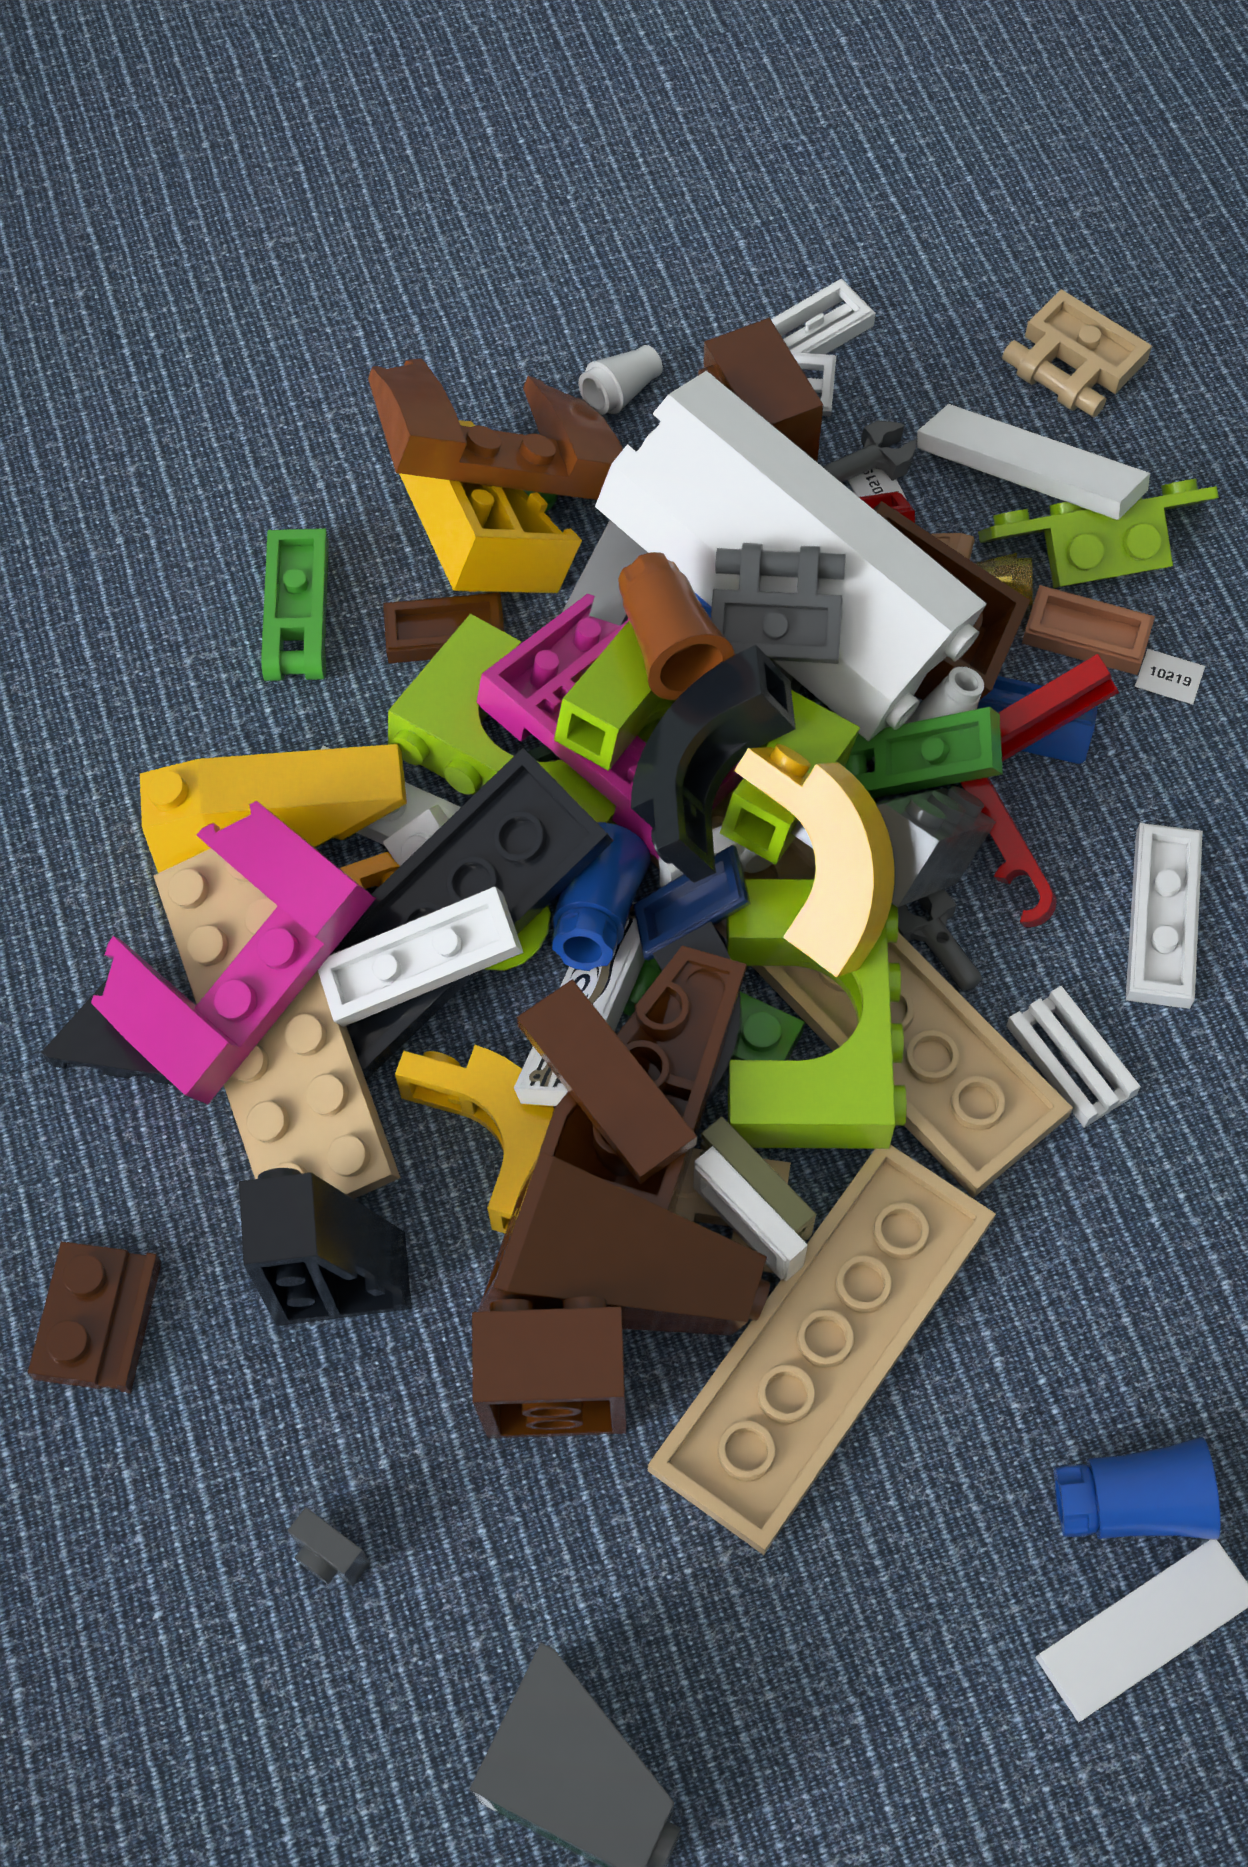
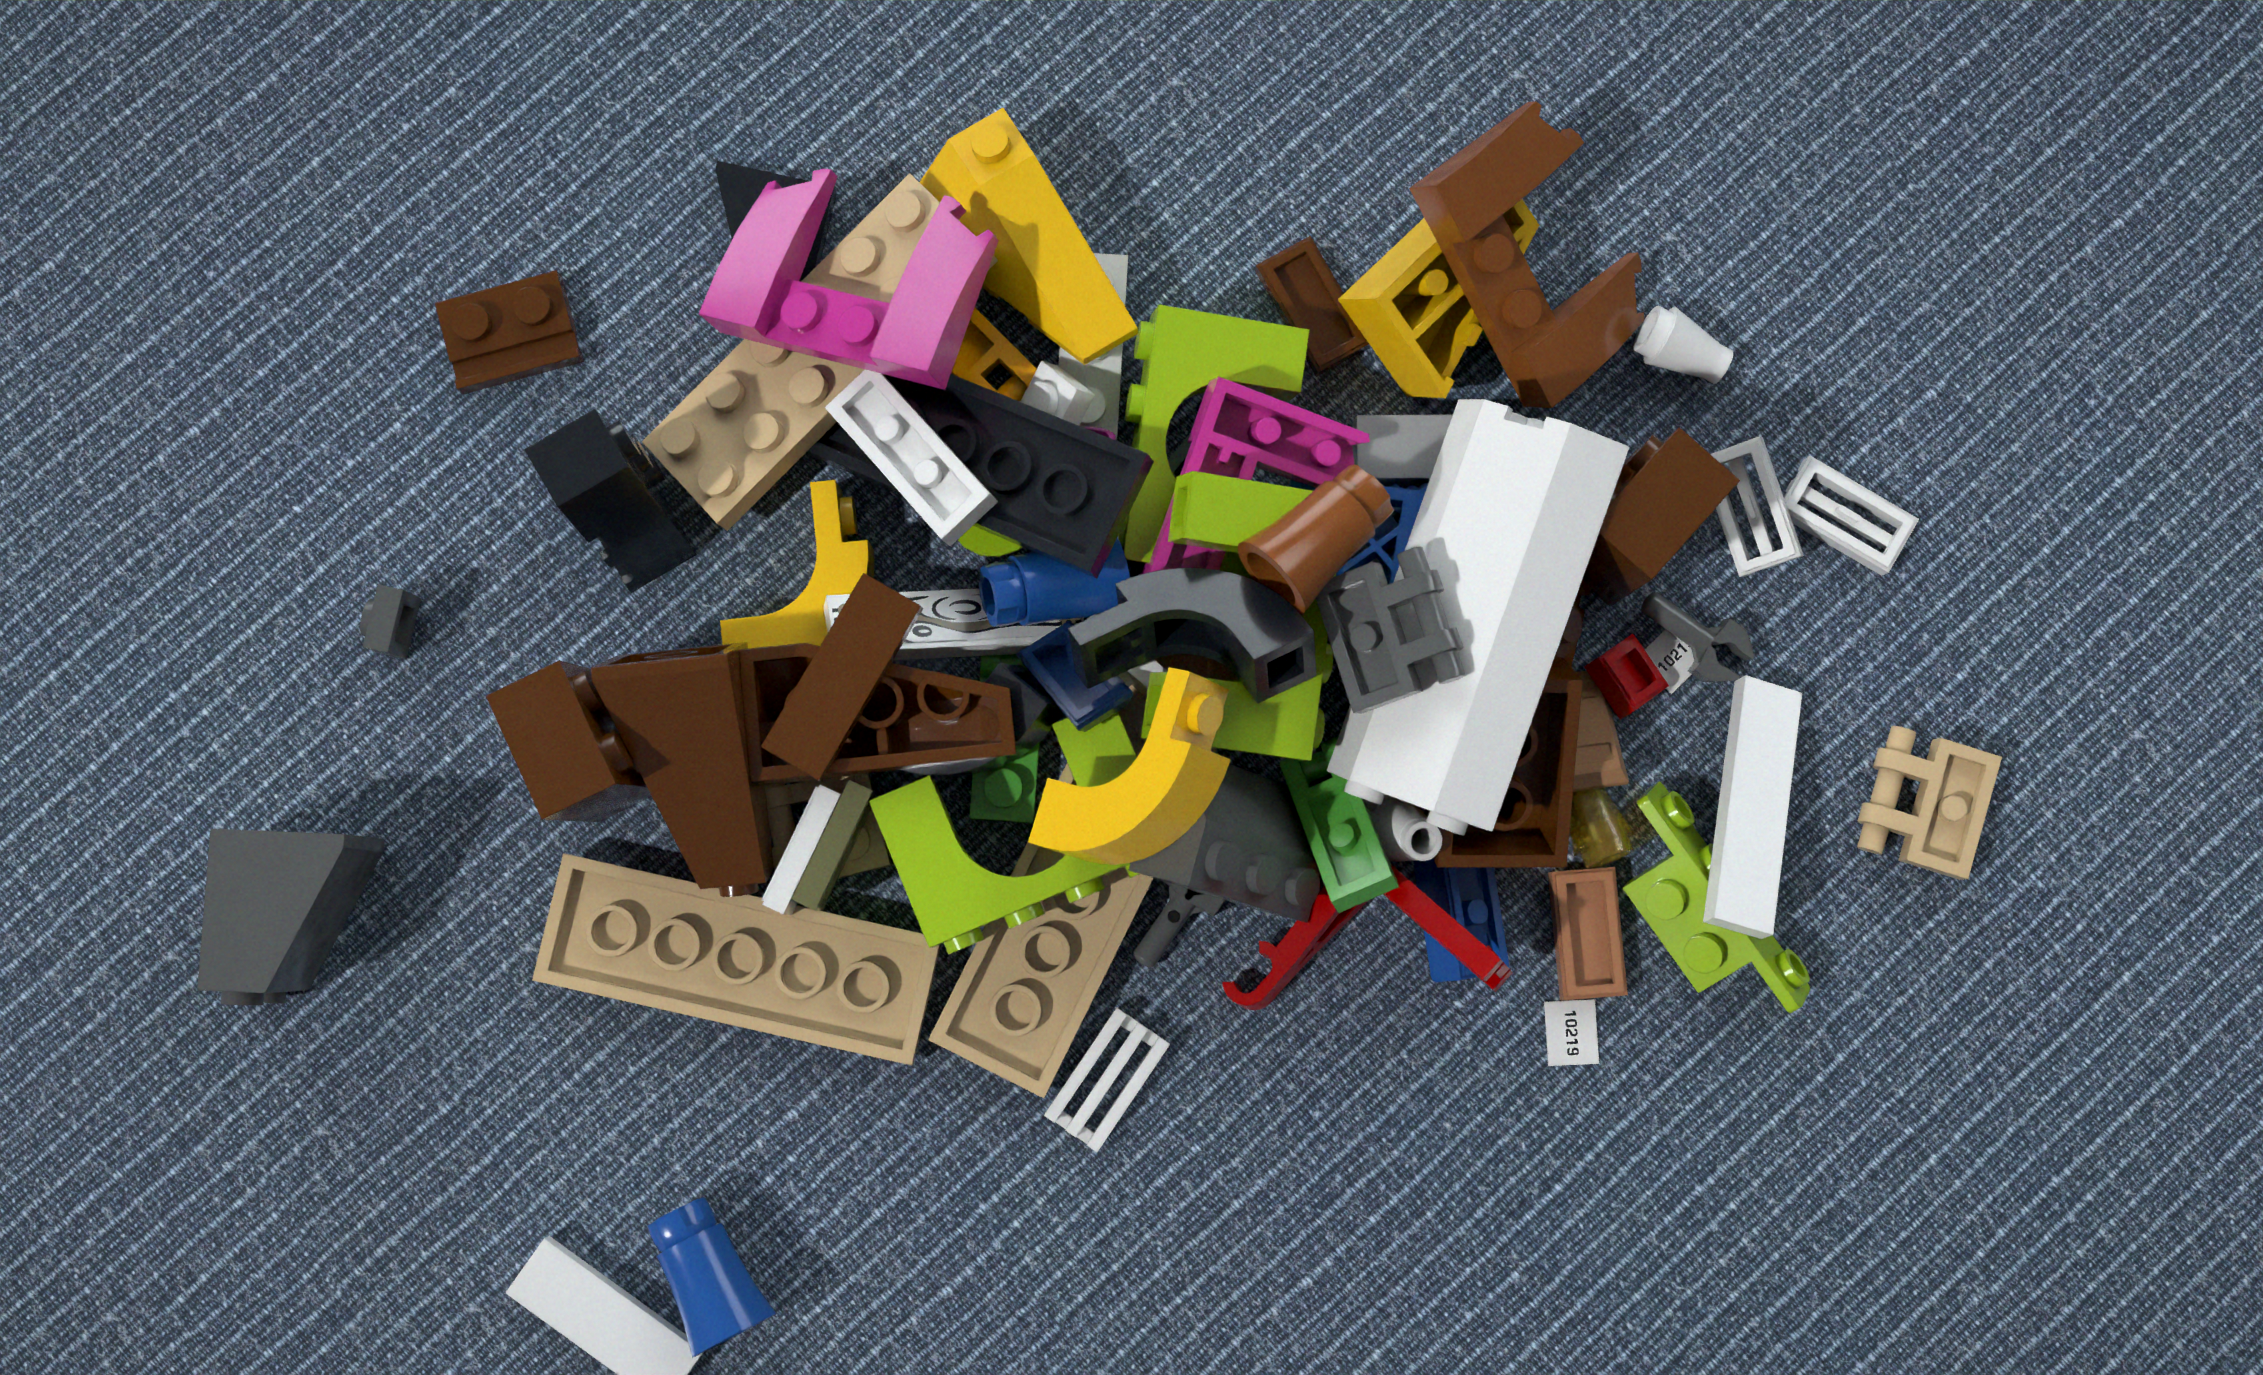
camera: 60 degrees right, 20 degrees up
(295, 603) = (1272, 152): bright green plate -> none
(1164, 916) = (1294, 1115): white tile -> none

